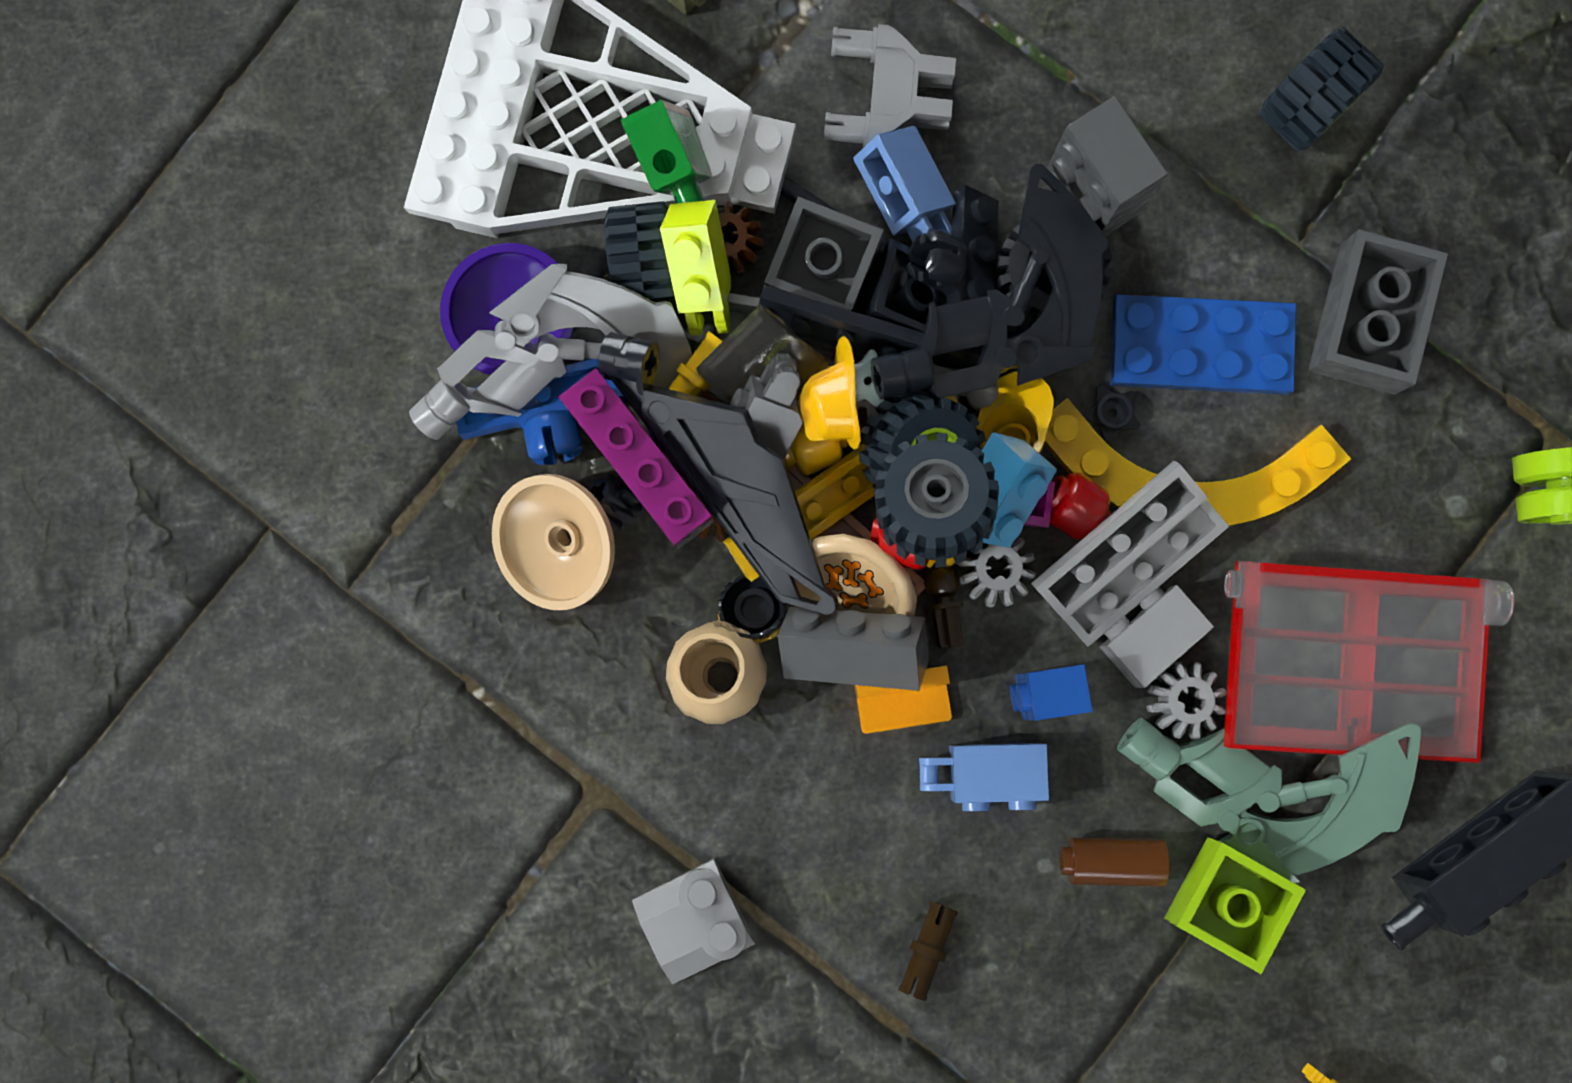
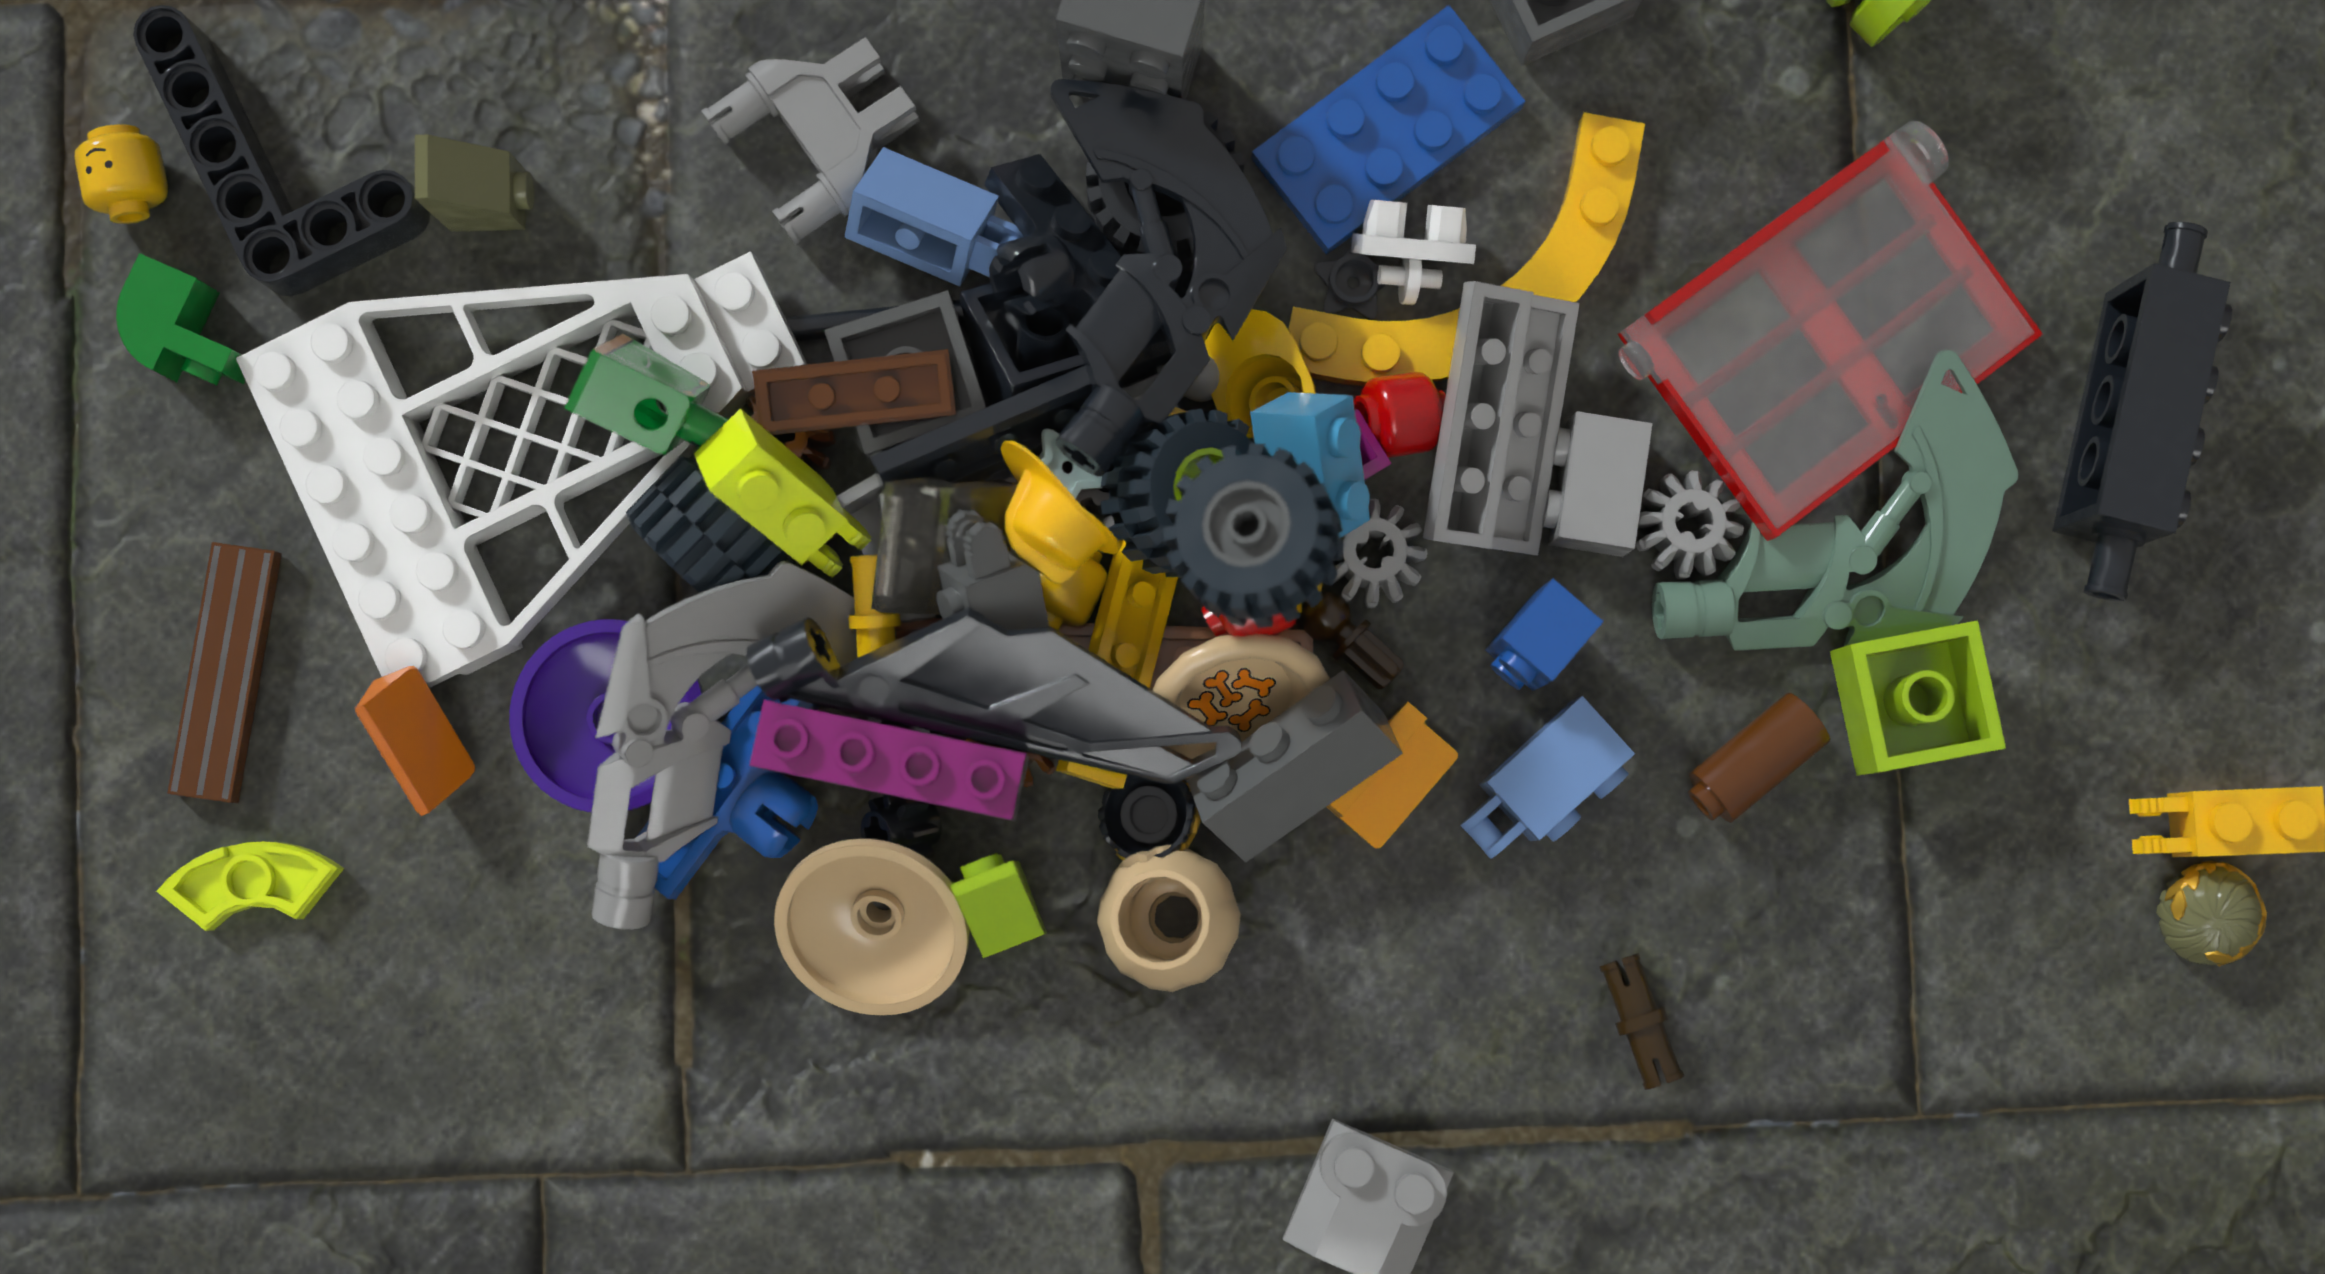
camera: 45 degrees left, 0 degrees up
(252, 239) = (250, 877): none -> neon yellow tile
(330, 121) = (224, 673): none -> reddish brown tile
(397, 237) = (415, 738): none -> orange slope
(630, 586) = (997, 904): none -> lime slope
(786, 244) = (855, 392): none -> reddish brown tile
(1180, 430) = (1442, 242): none -> white hips

